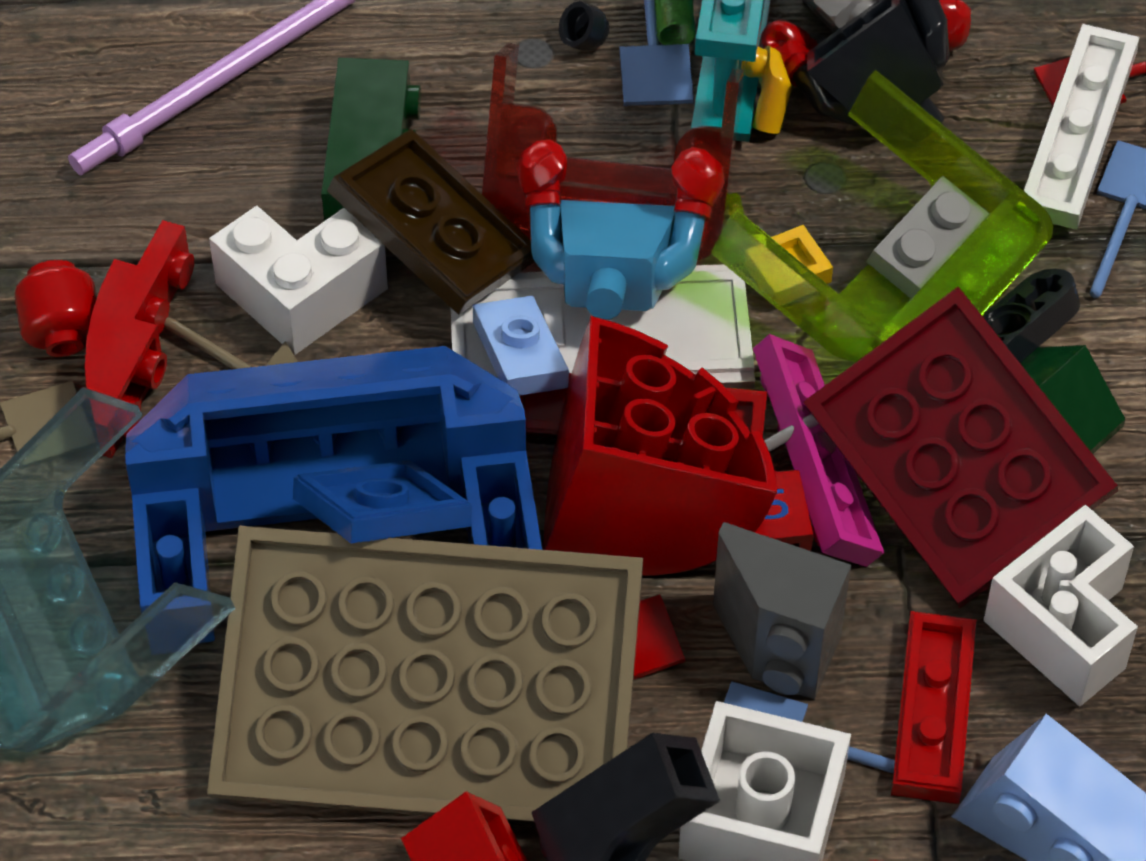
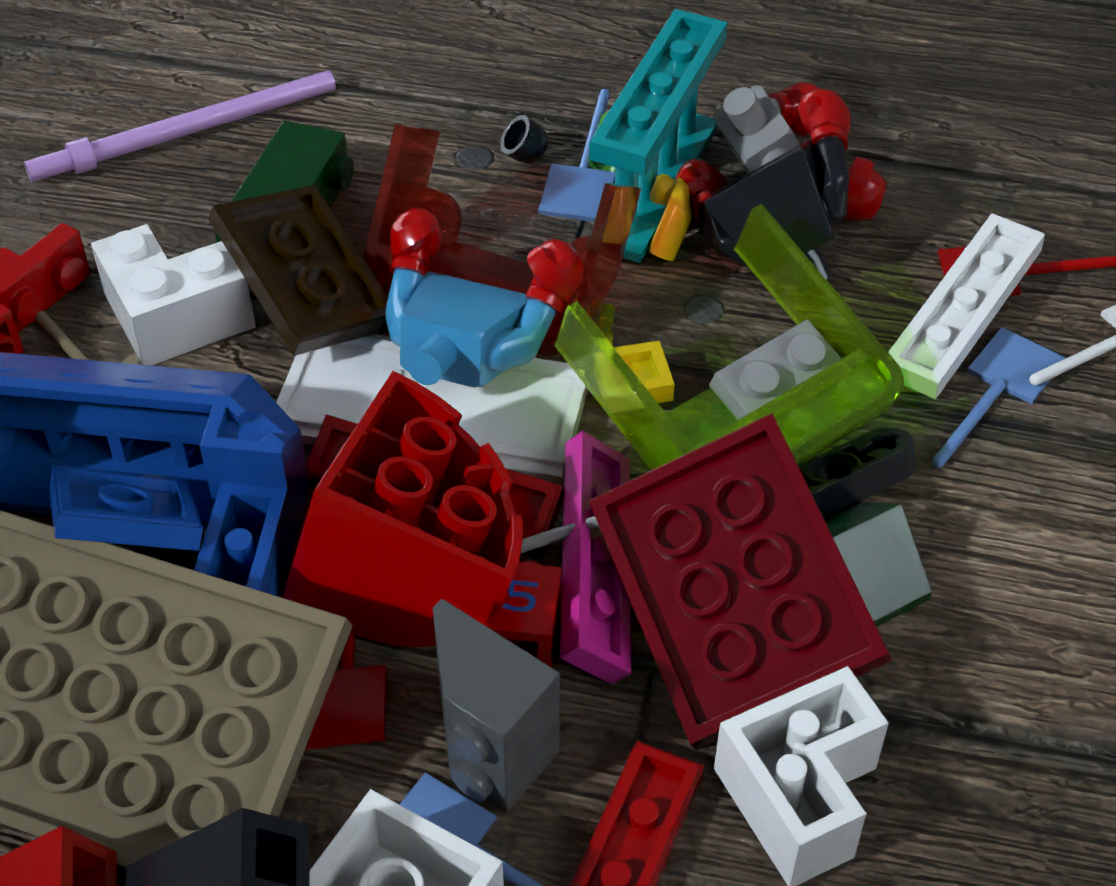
camera: 15 degrees right, 5 degrees down
(520, 345) = (334, 393): light blue plate -> none

